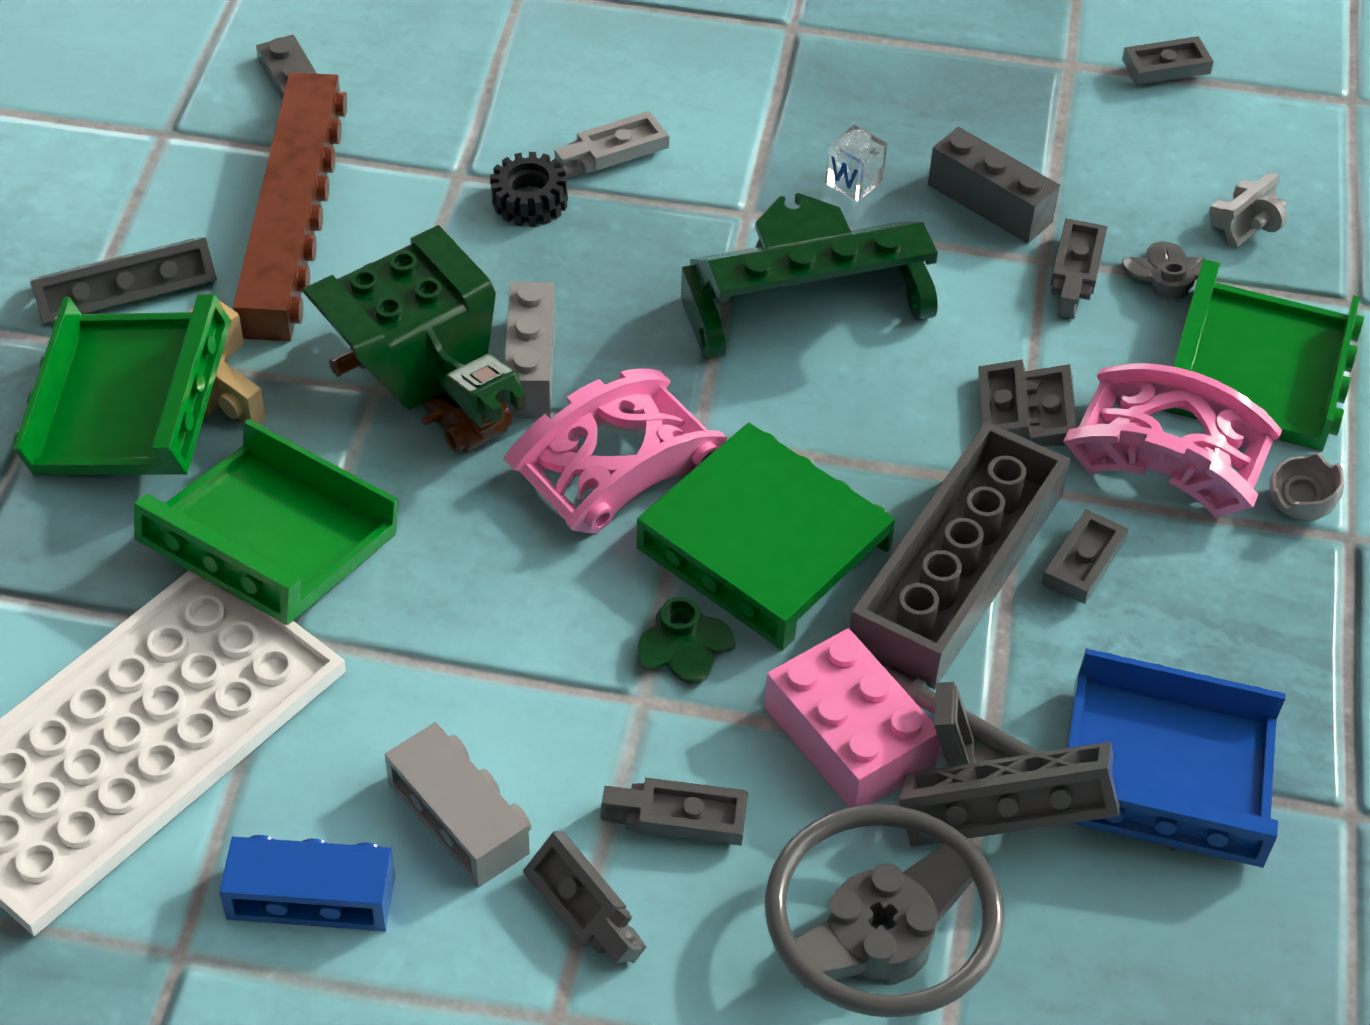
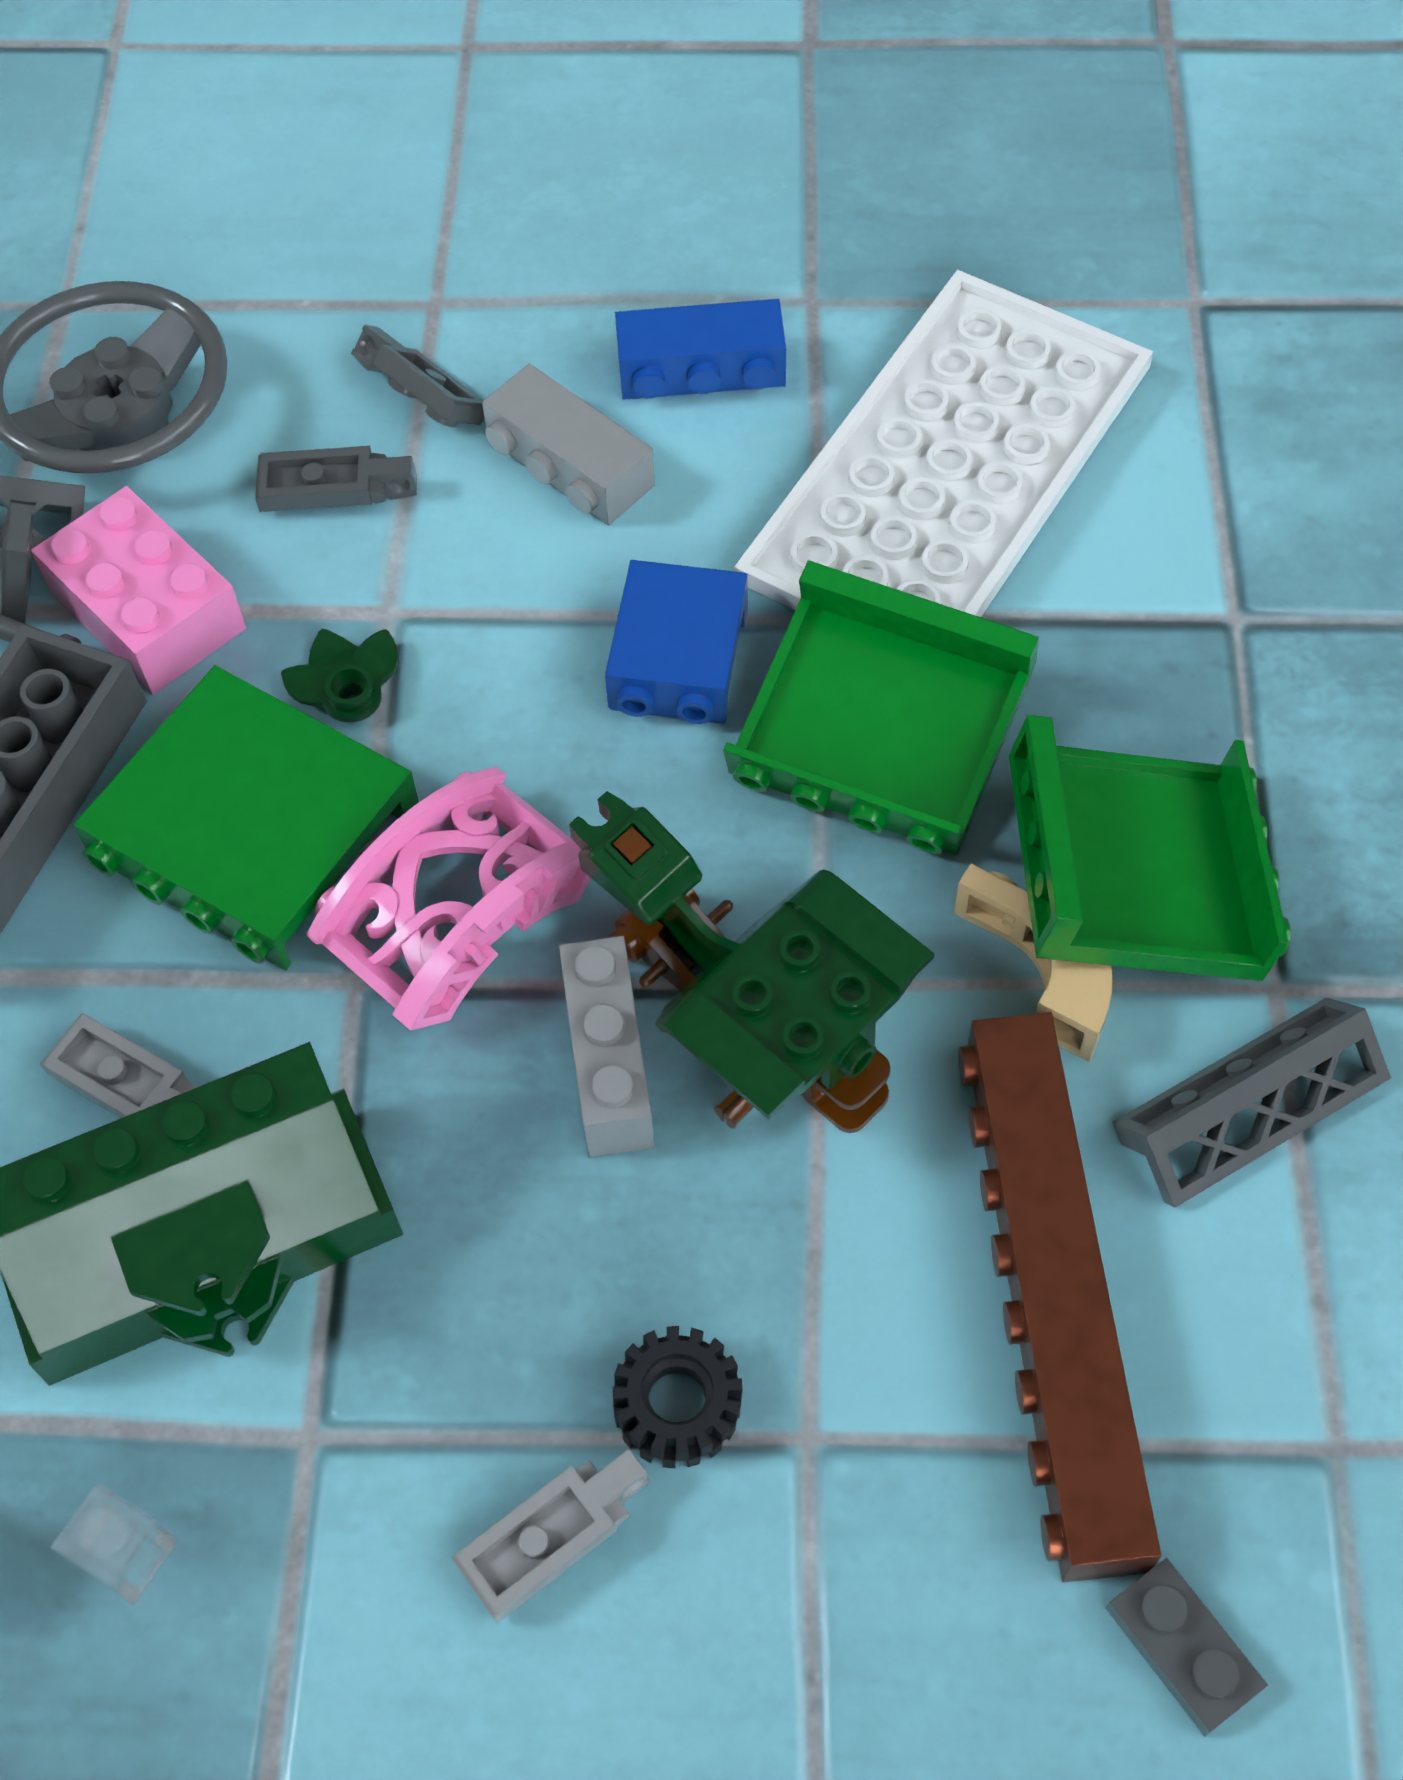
camera: 175 degrees right, 10 degrees up
(405, 611) = (676, 641): none -> blue panel
(855, 383) = (112, 1069): none -> light grey hinge

